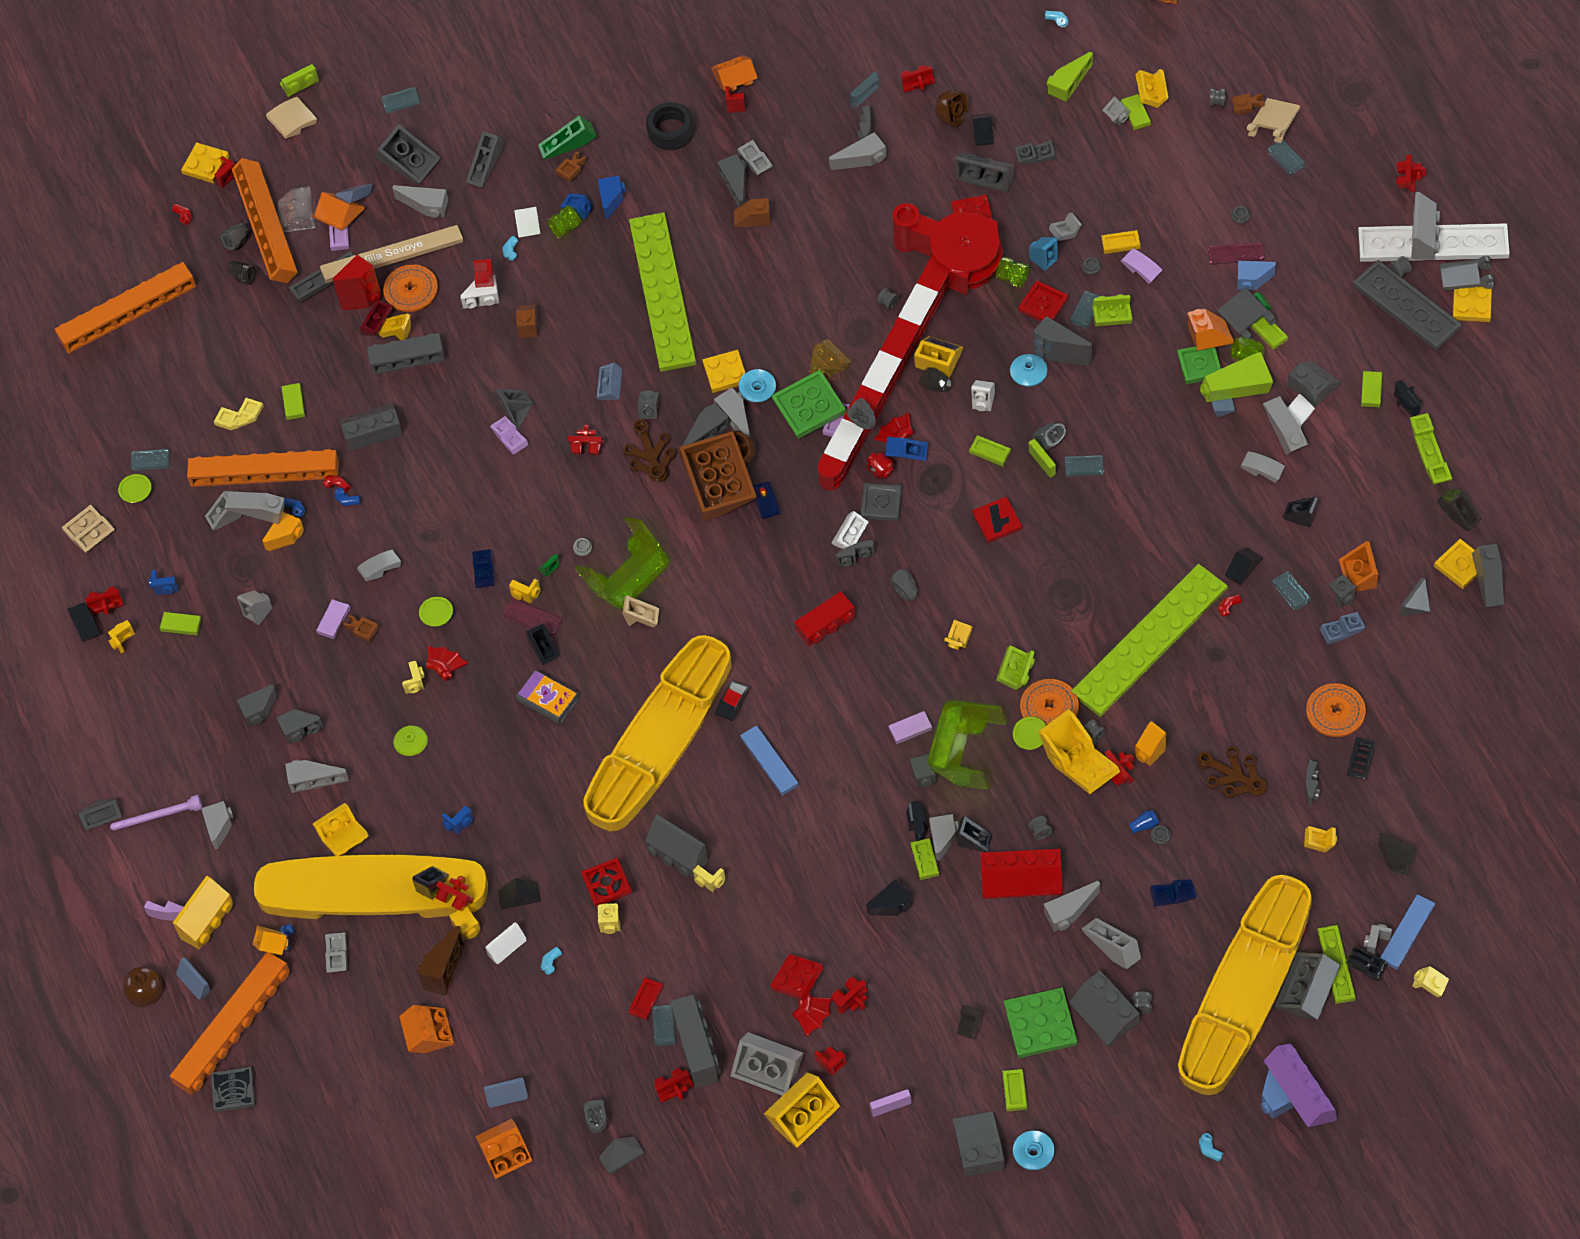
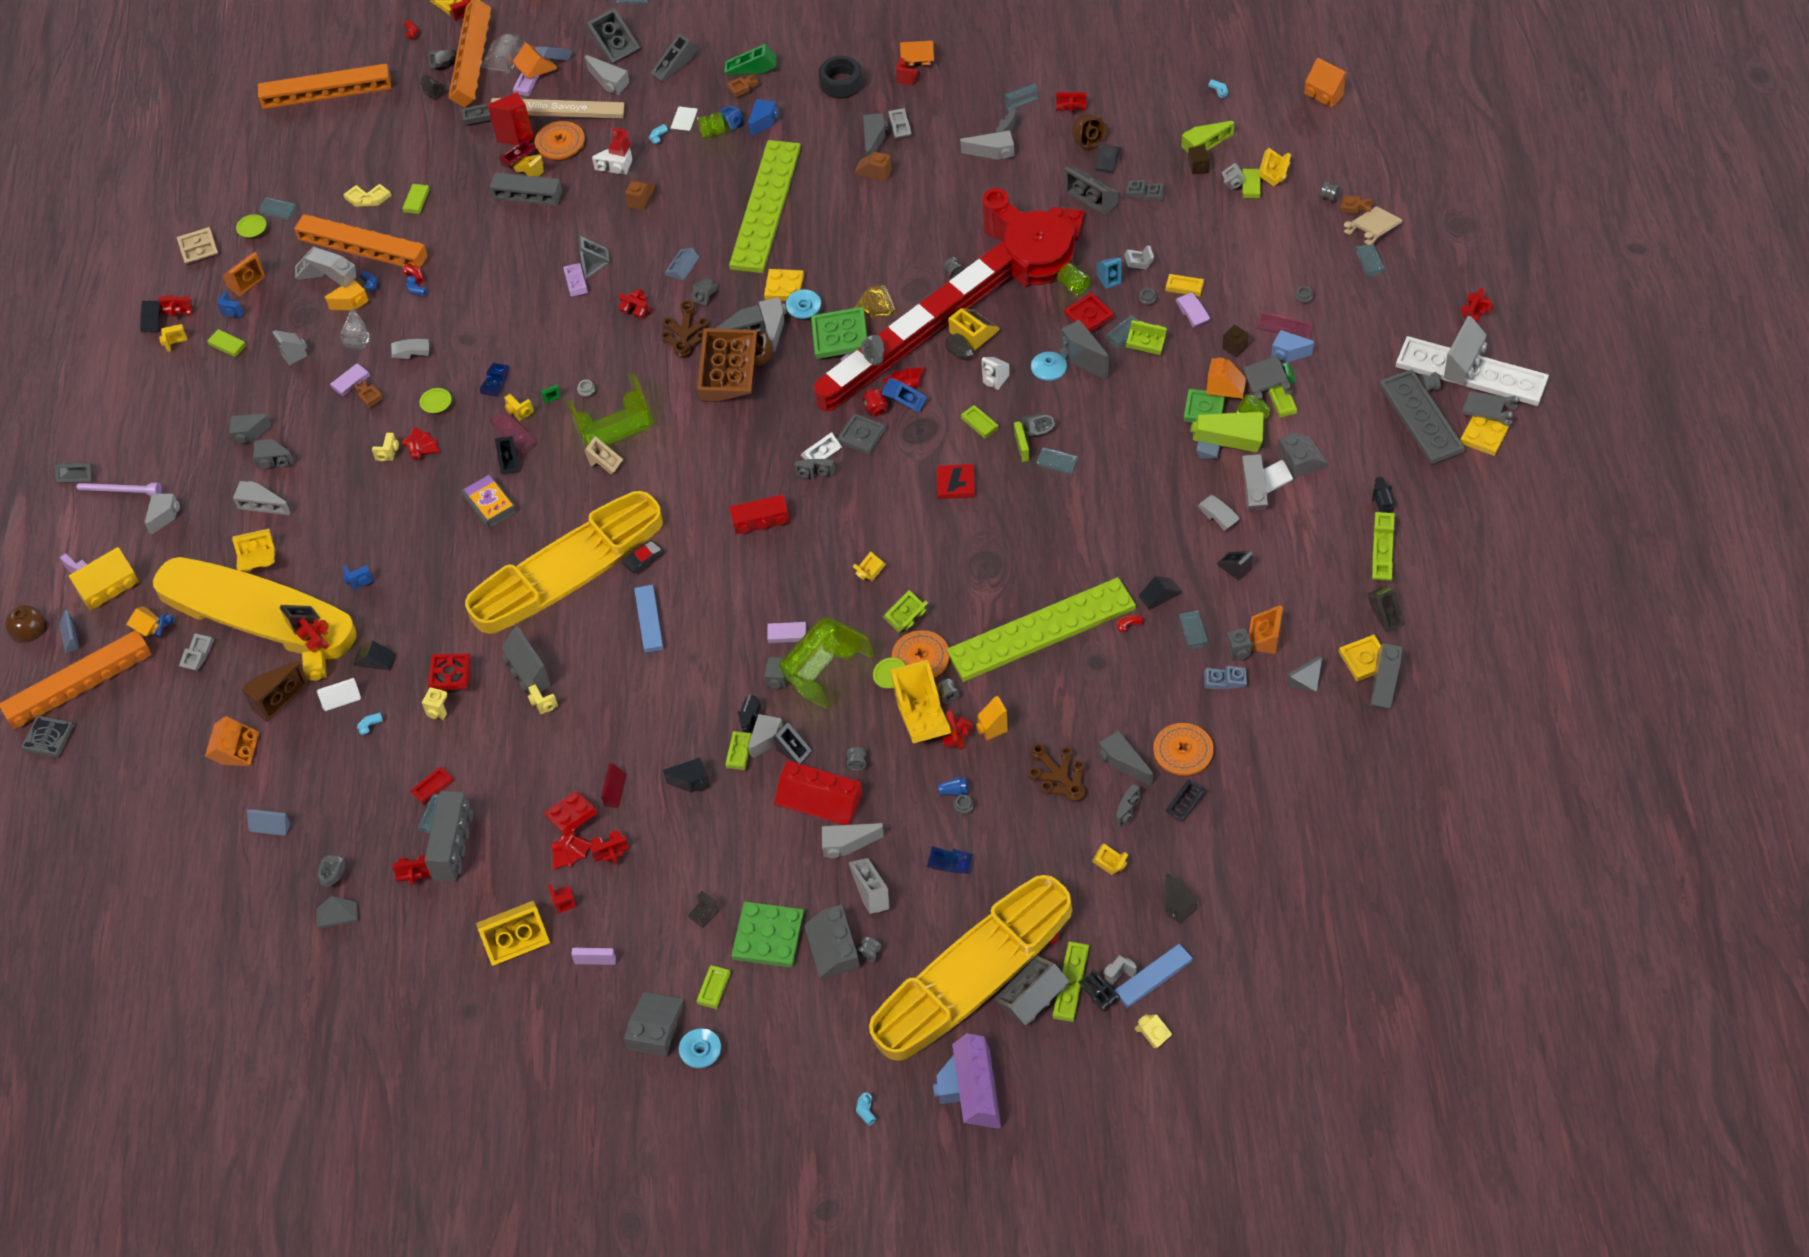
camera: 20 degrees right, 5 degrees down
(159, 543) = (244, 275): none -> orange slope
(312, 566) = (354, 331): none -> clear slope
(371, 427) = (465, 238): dark grey slope -> none
(410, 740) = (358, 499): lime piece -> none
(503, 1148) = (238, 870): orange slope -> none
(766, 500) = (761, 399): clear blue slope -> none
(766, 1064) = (503, 879): light grey slope -> none
(823, 937) = (613, 786): none -> dark red slope
(904, 585) = (844, 508): dark grey rock -> none
(1074, 103) = (1198, 159): none -> dark brown brick
(1198, 285) = (1235, 340): none -> dark brown brick
(1285, 737) = (1123, 757): none -> dark grey slope
(1371, 389) = (1353, 478): lime tile -> none

